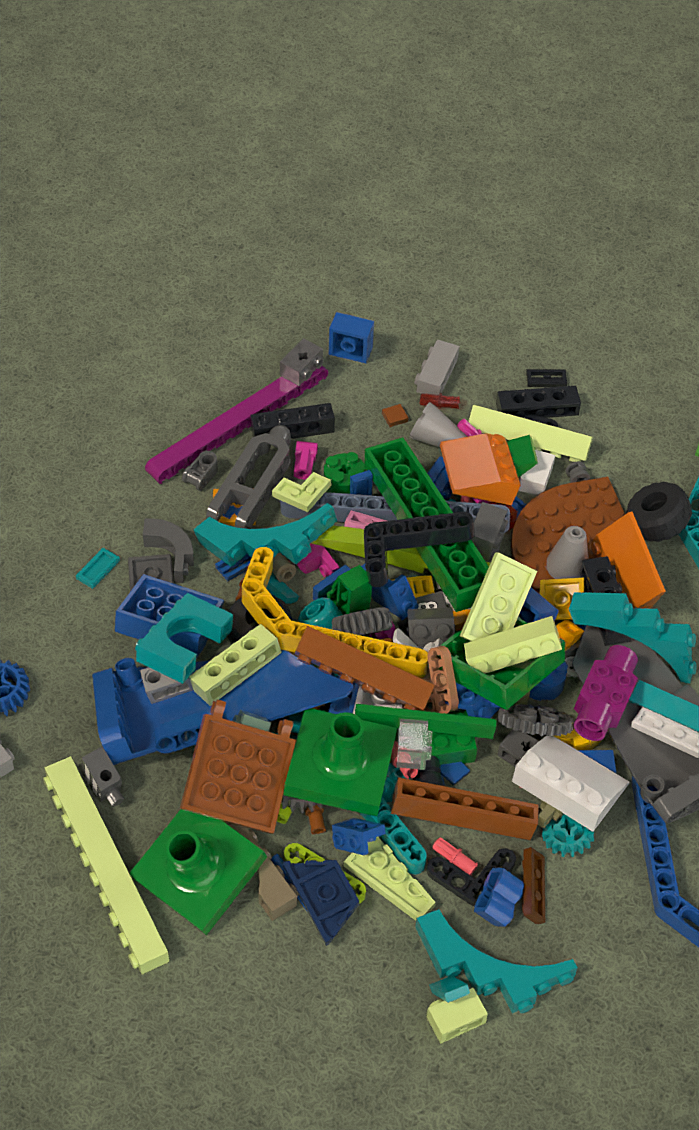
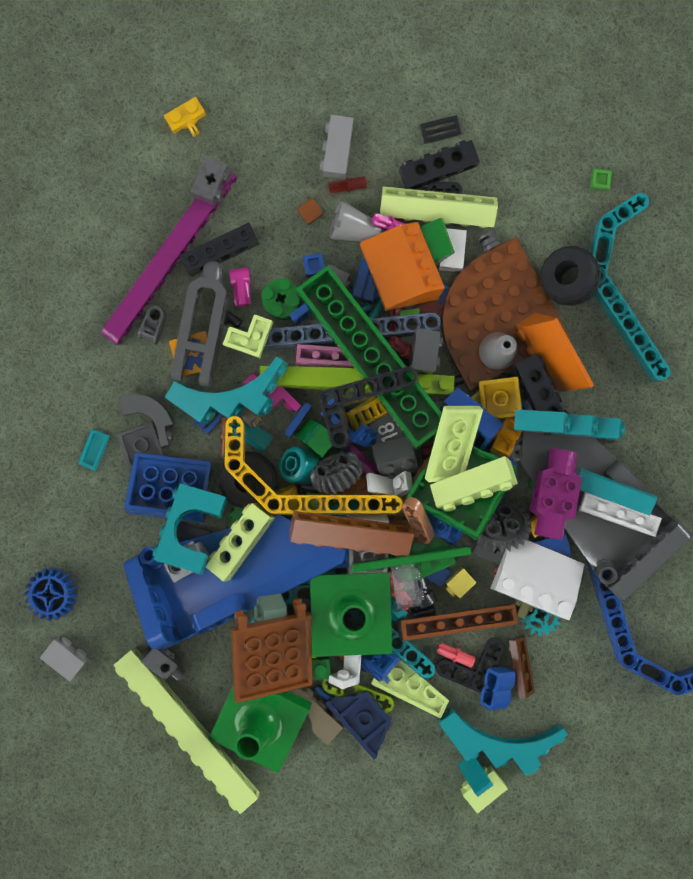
camera: 10 degrees left, 35 degrees up
(287, 828) = (321, 668): none -> green brick
(291, 319) = (185, 116): none -> yellow plate
(323, 836) = (349, 675): none -> white bracket
(351, 337) = (248, 133): blue brick -> none
(477, 777) = (459, 583): none -> light yellow brick

